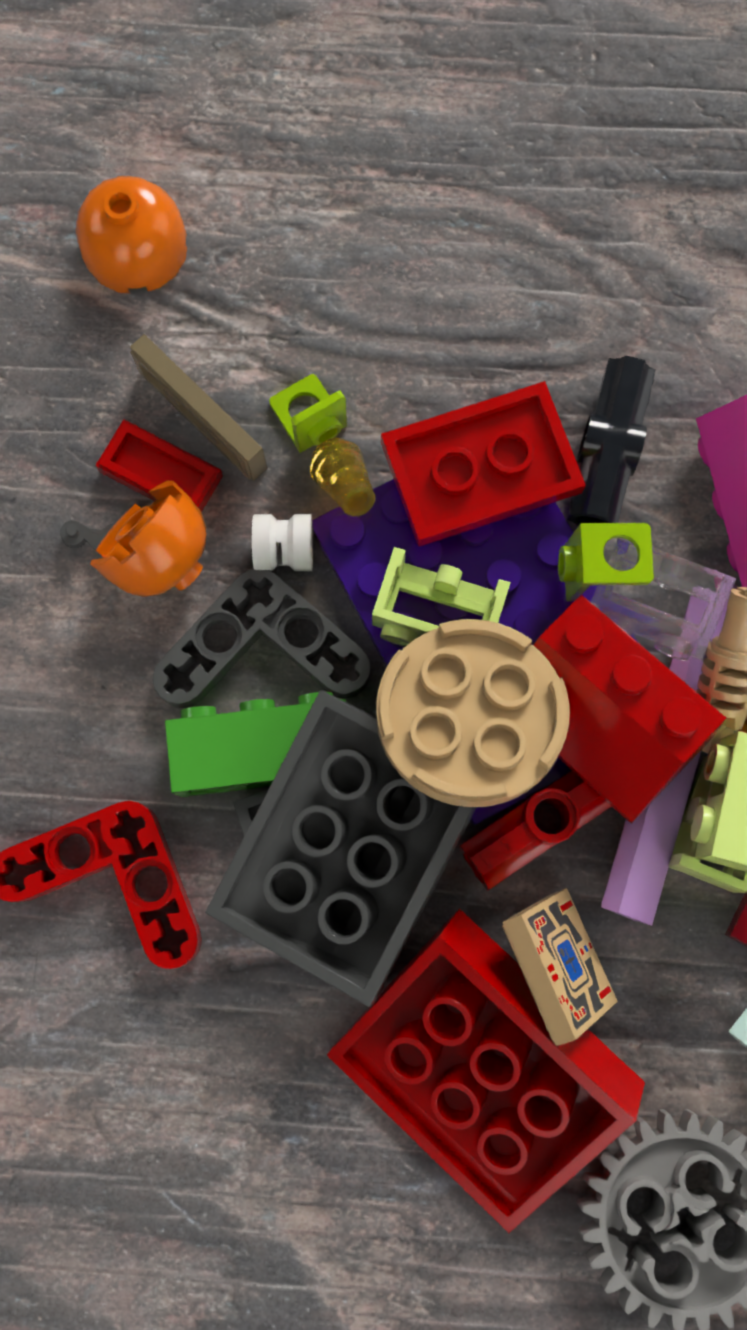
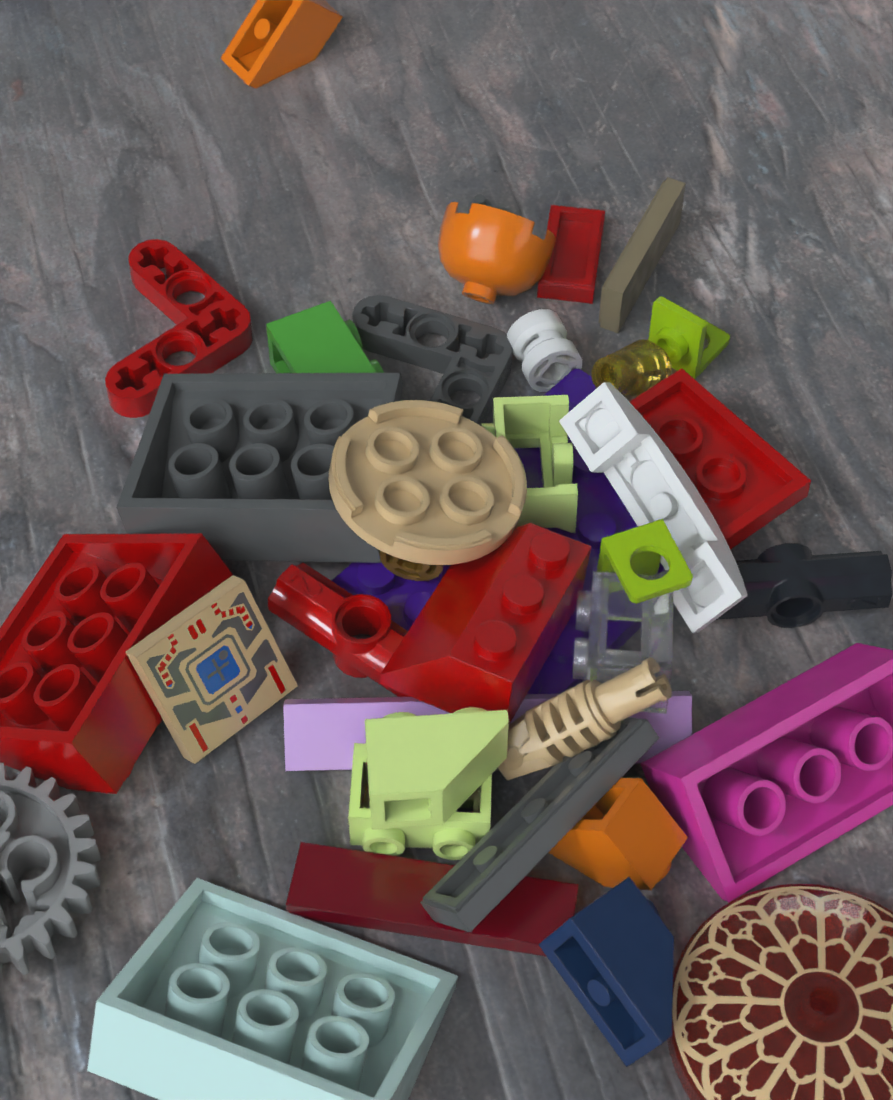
camera: 70 degrees right, 25 degrees down
(131, 234) = (785, 162): orange cylinder -> none
(534, 513) = (655, 487): none -> white slope

